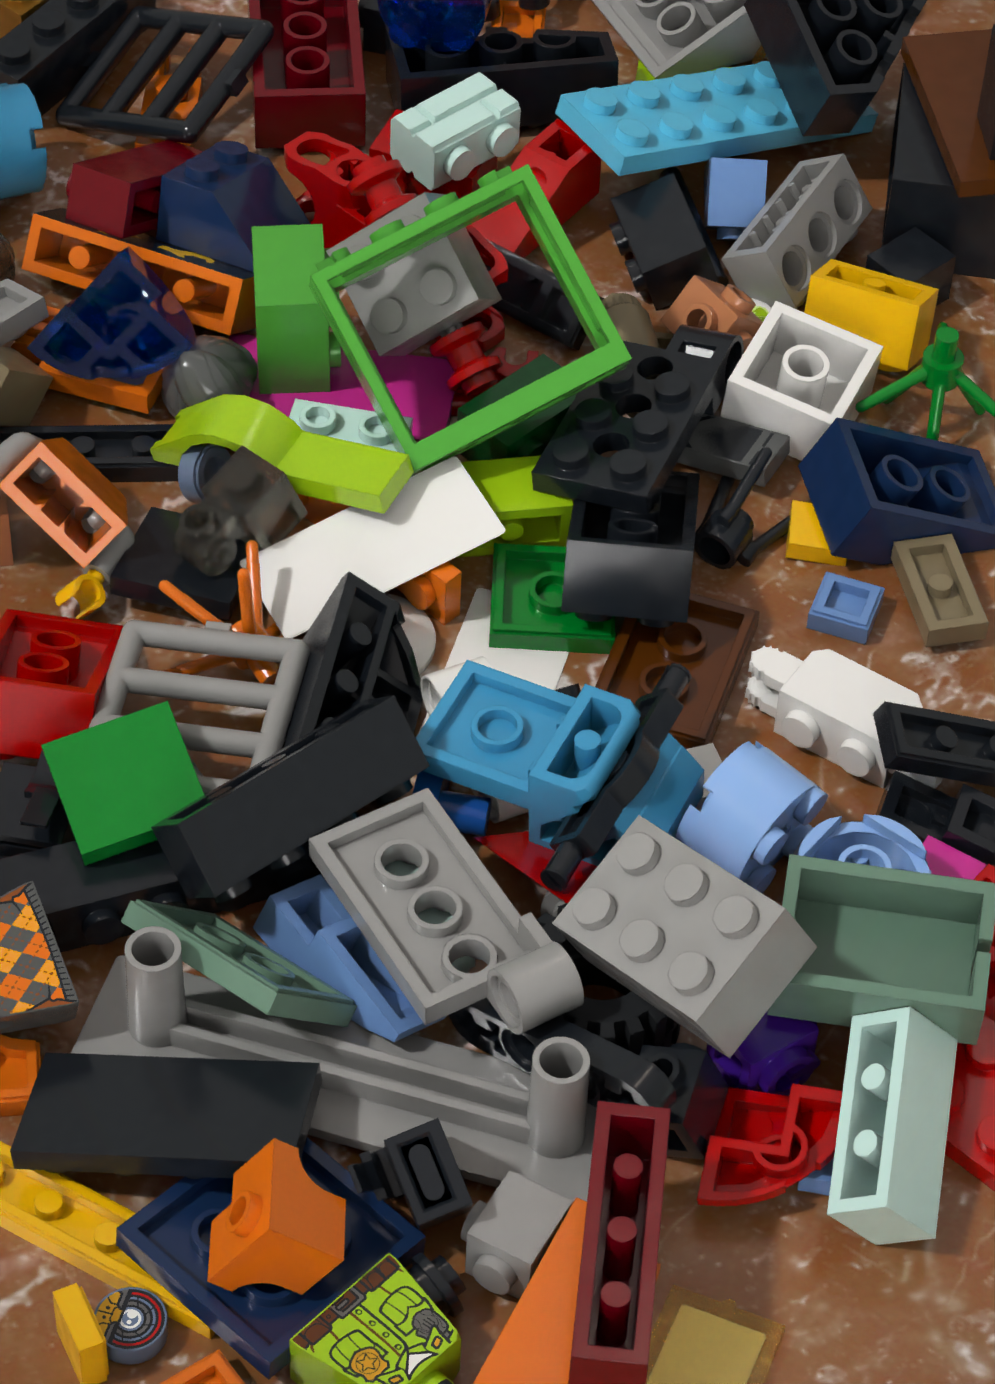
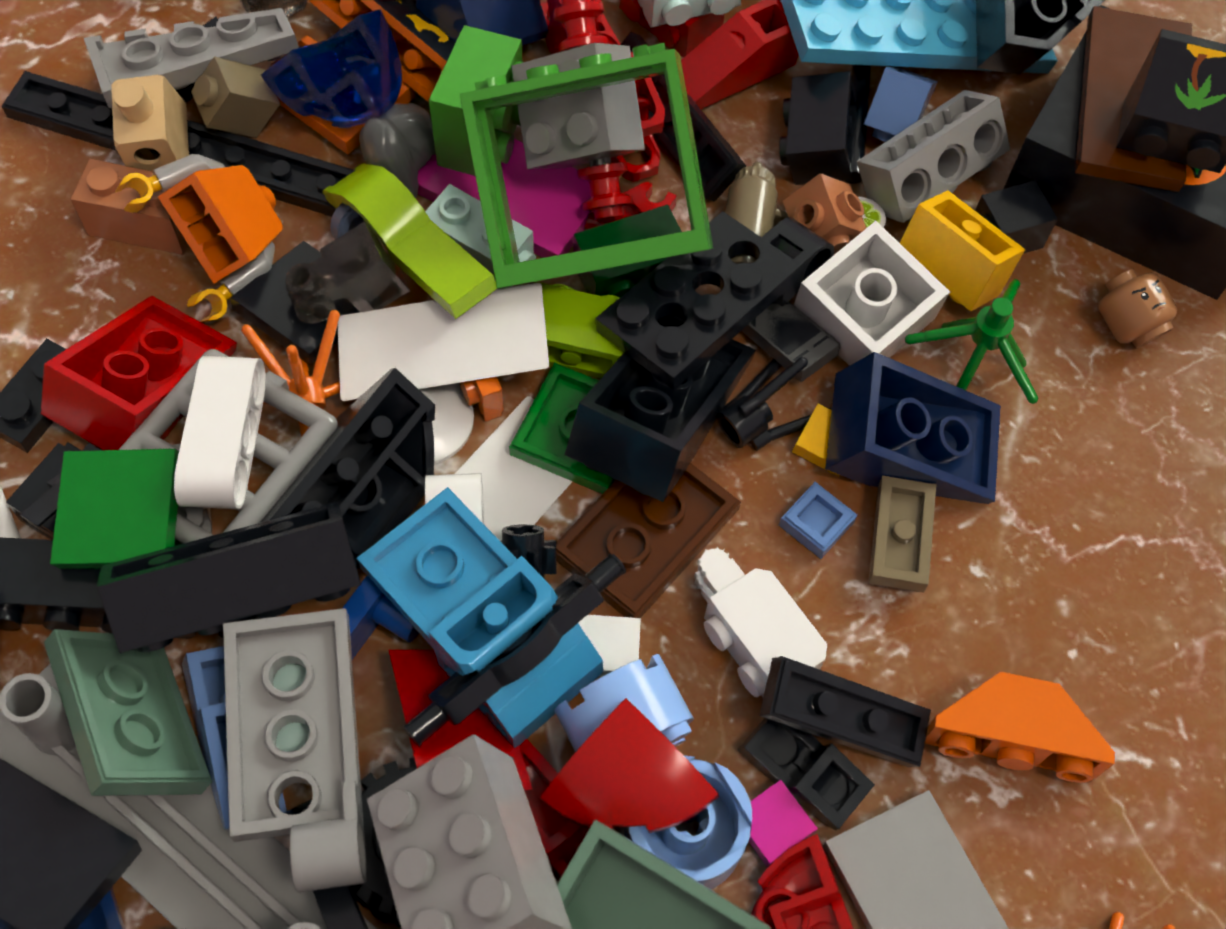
camera: 20 degrees right, 15 degrees up
(203, 677) = (220, 433): none -> white beam
(797, 819) = (628, 778): none -> red brick

